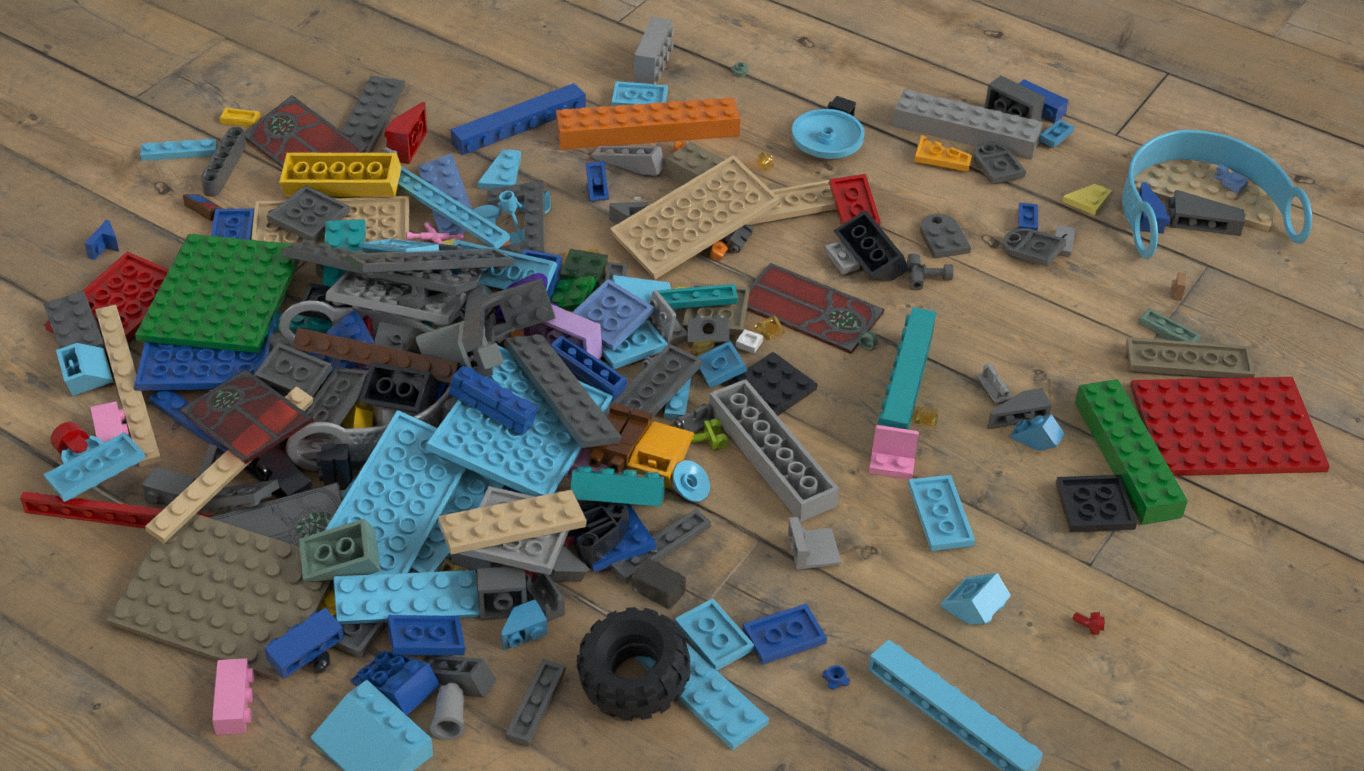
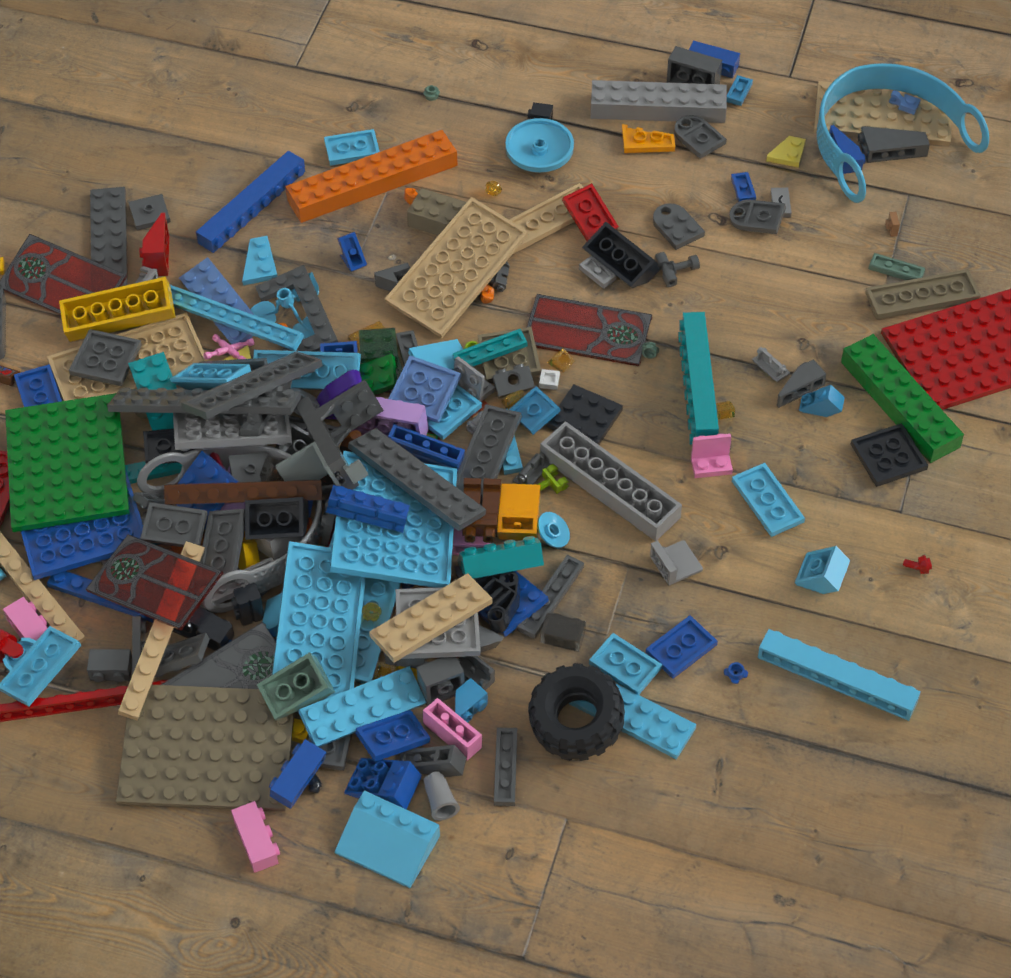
camera: 15 degrees left, 10 degrees up
(410, 100) = (147, 210): none -> dark grey plate
(457, 500) = (371, 607): none -> clear yellow plate
(493, 646) = (452, 728): none -> bright pink brick
(638, 159) = (375, 217): light grey slope -> none
(653, 51) = (348, 96): light grey brick -> none

